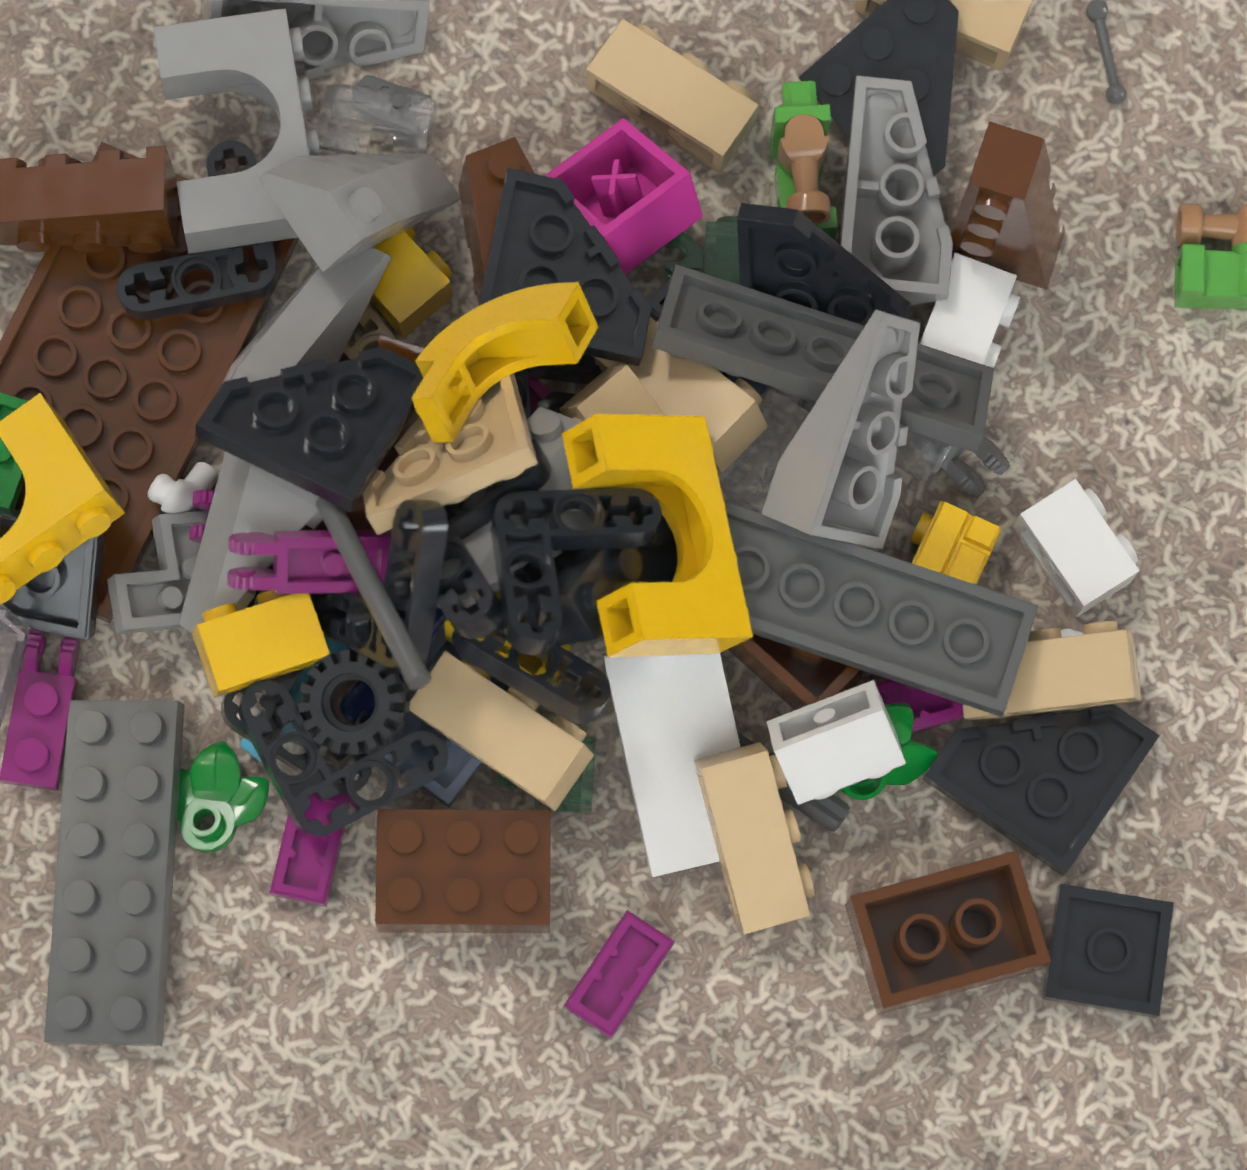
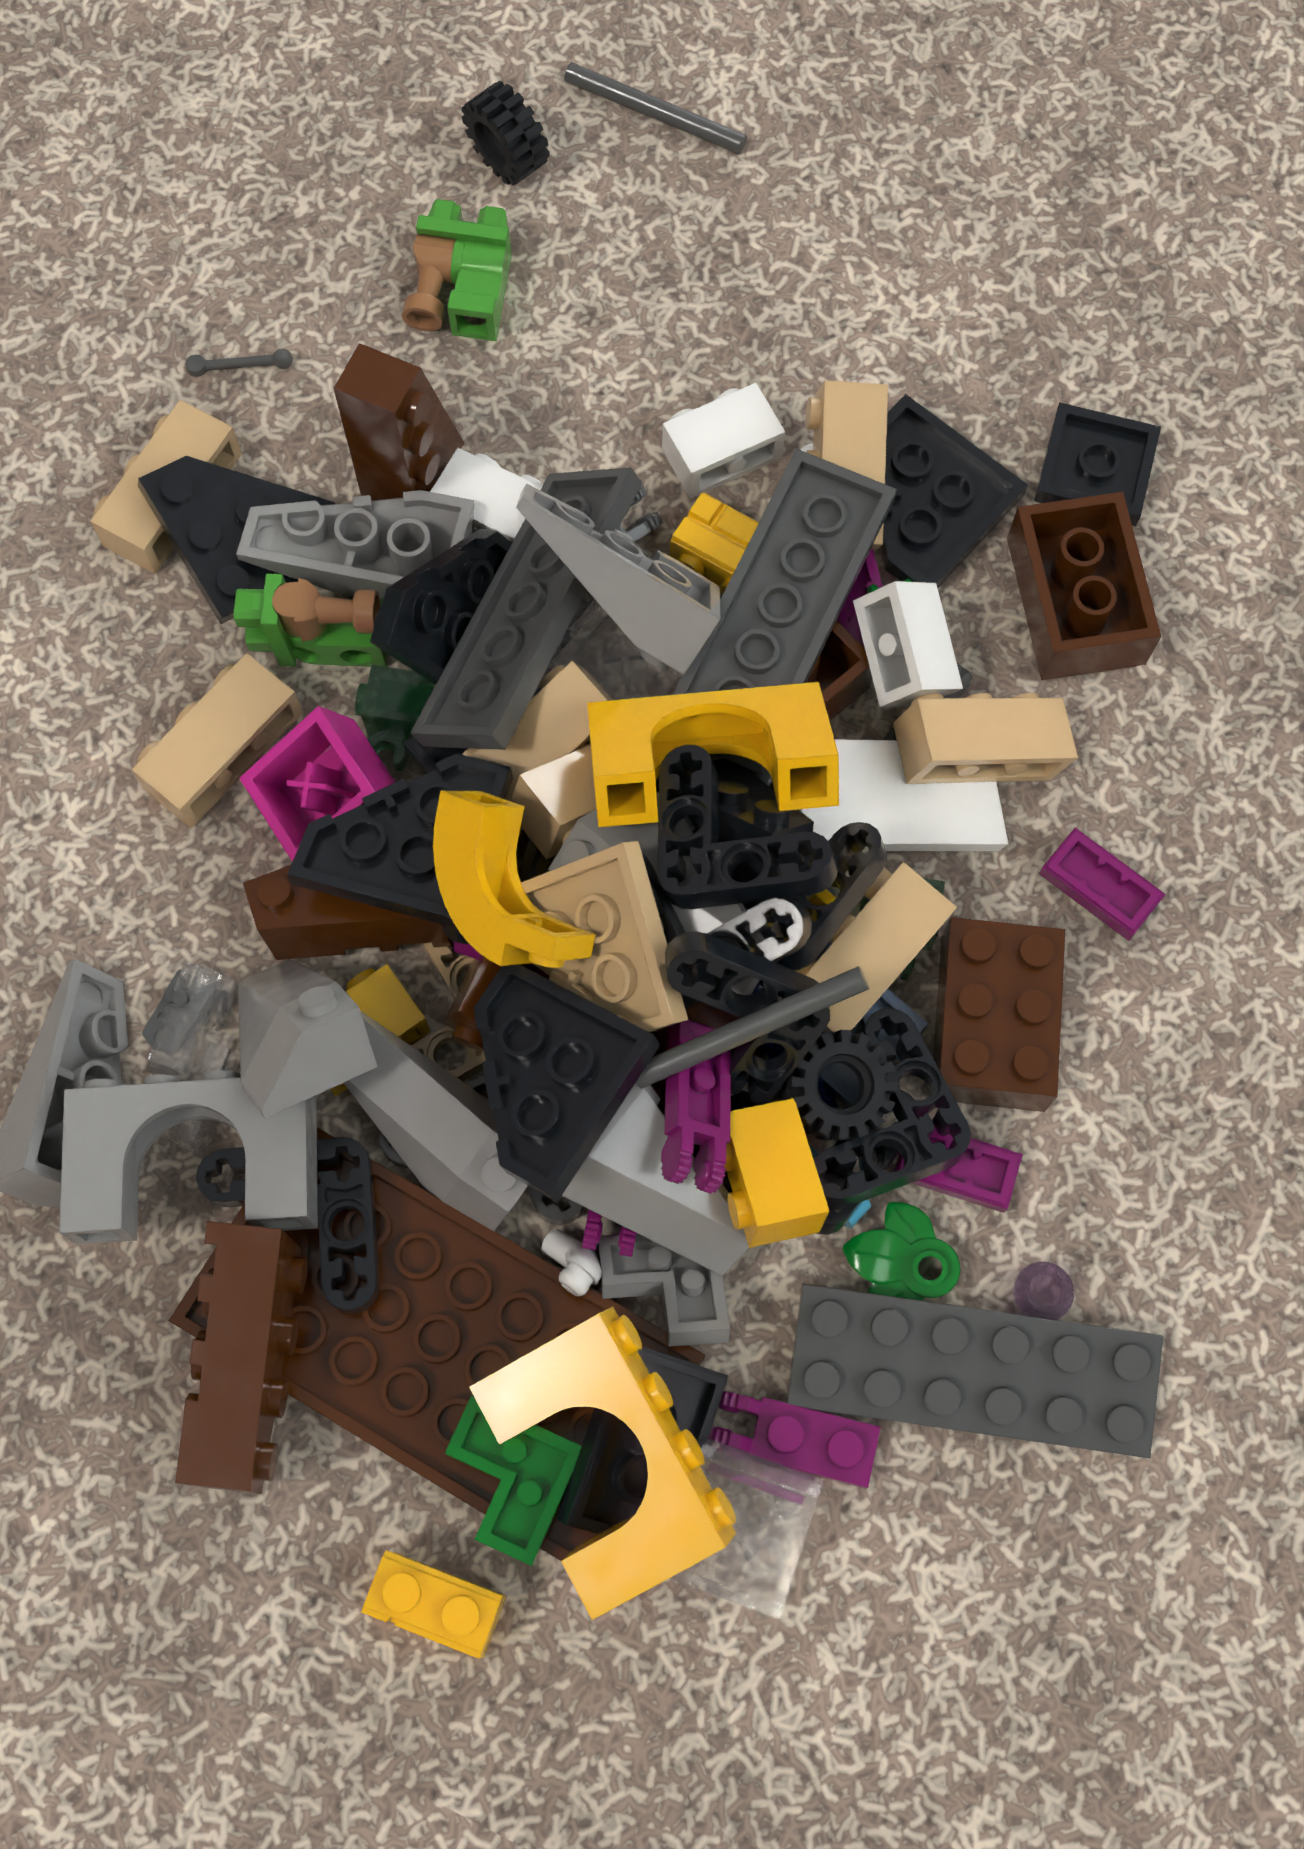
camera: 80 degrees left, 5 degrees down
(196, 936) = (1043, 1290): none -> clear purple plate

